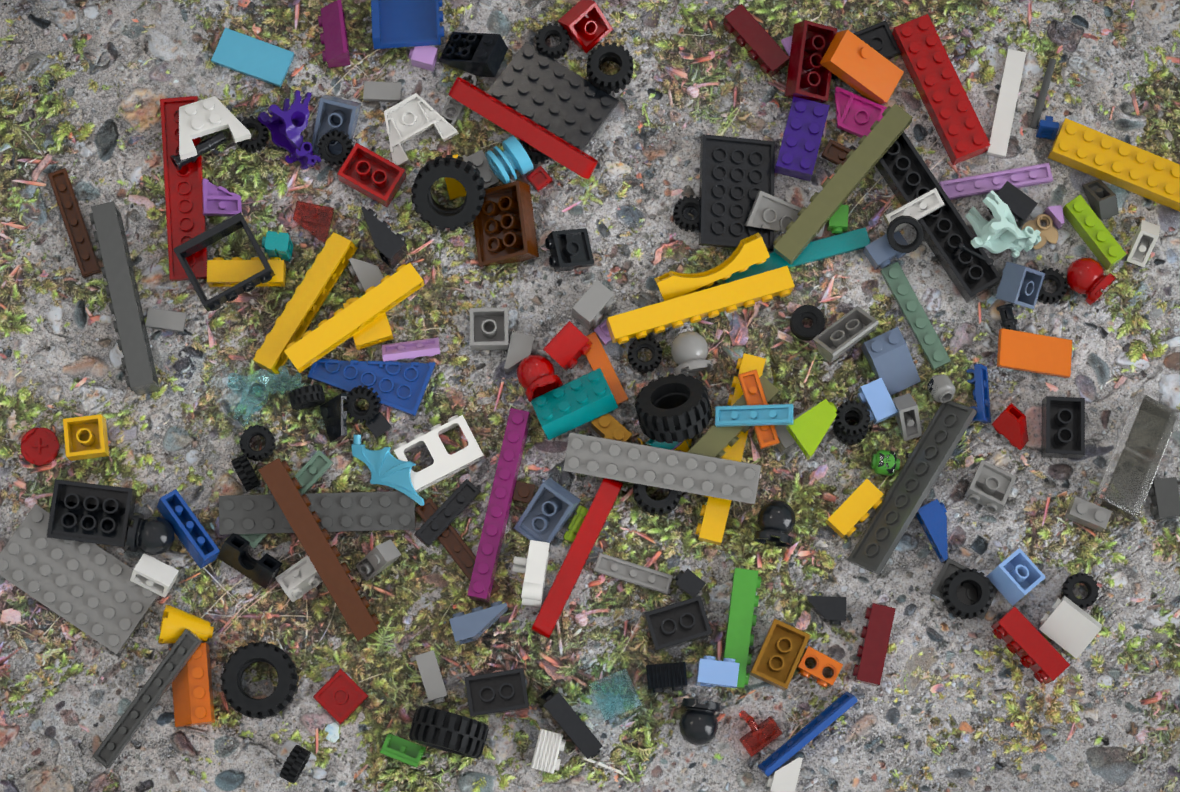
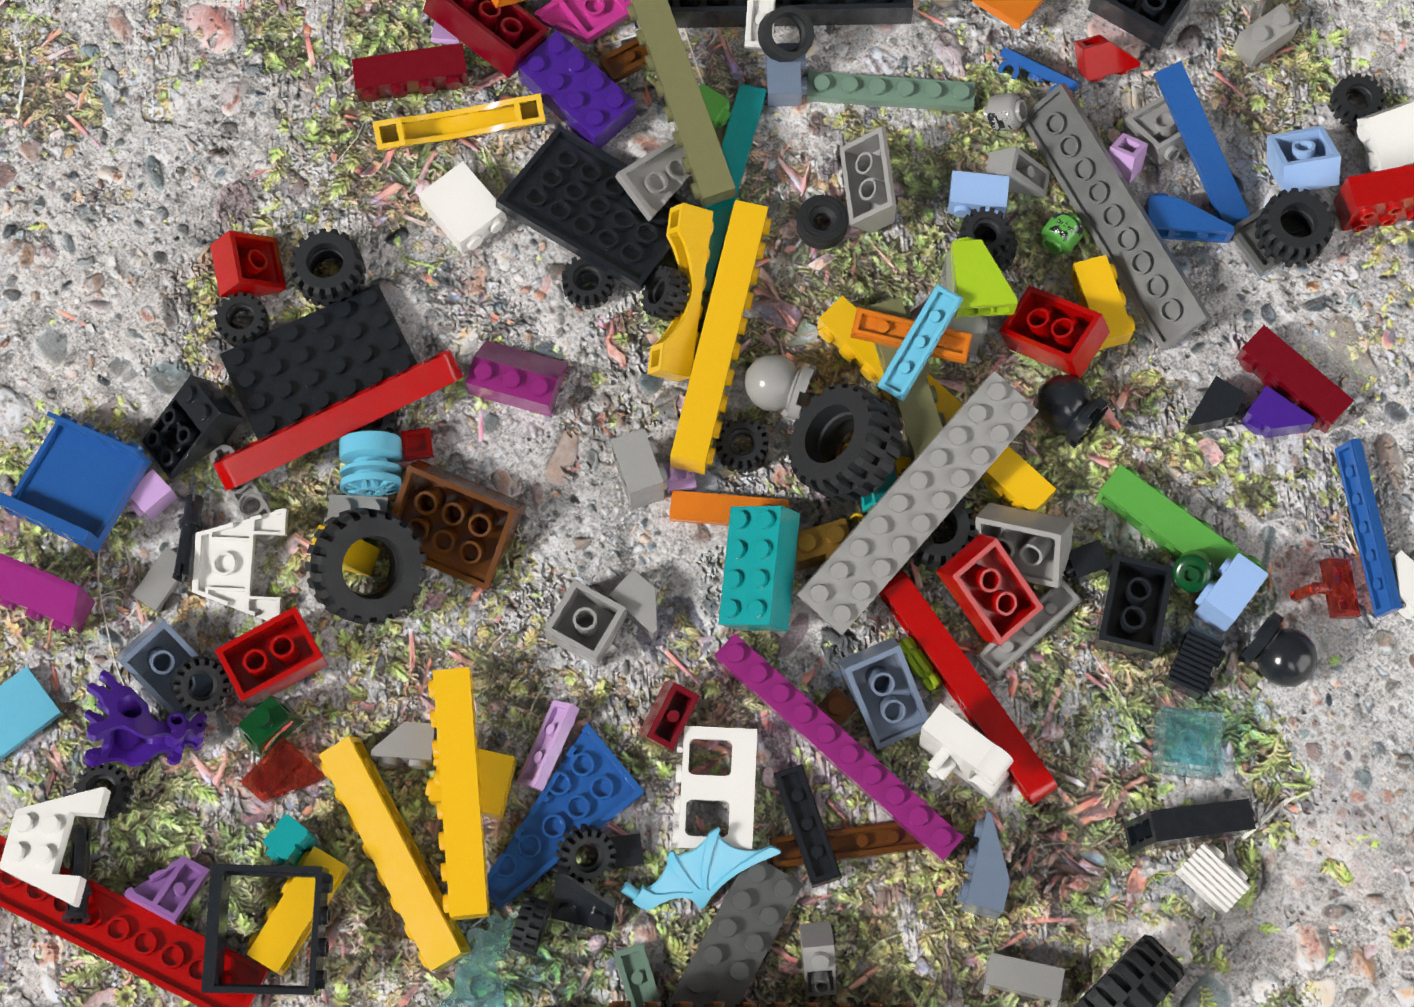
camera: 55 degrees left, 5 degrees down
(335, 196) = (268, 724): none -> dark green torso
(389, 246) = (375, 692): black slope -> none
(419, 87) = (189, 526): none -> black pin
(463, 403) = (668, 715): none -> dark red brick
(496, 693) = (1098, 900): black brick -> none
(537, 376) = (689, 596): red tile -> none
(568, 346) = (675, 532): red slope -> none
(569, 249) = (540, 459): black plate -> none
(610, 208) = (516, 378): none -> magenta slope
(637, 537) = (990, 589): none -> red brick
(677, 541) = (1033, 540): none -> light grey slope
(691, 118) = (462, 208): none -> white brick
(706, 260) = (665, 293): none -> black tyre
(715, 644) = (1193, 571): none -> dark green head
(740, 85) = (459, 123): none -> yellow arch
(779, 654) = (1245, 501): pearl gold brick -> none
(815, 490) = (1055, 331): none -> red brick
(821, 662) = (1283, 459): orange brick -> none
(844, 645) = (1276, 416): none -> dark purple slope
(891, 361) = (932, 149): sand blue slope -> none
(954, 474) = (1128, 155): none -> lavender brick
(987, 512) = (1201, 143): none -> blue tile

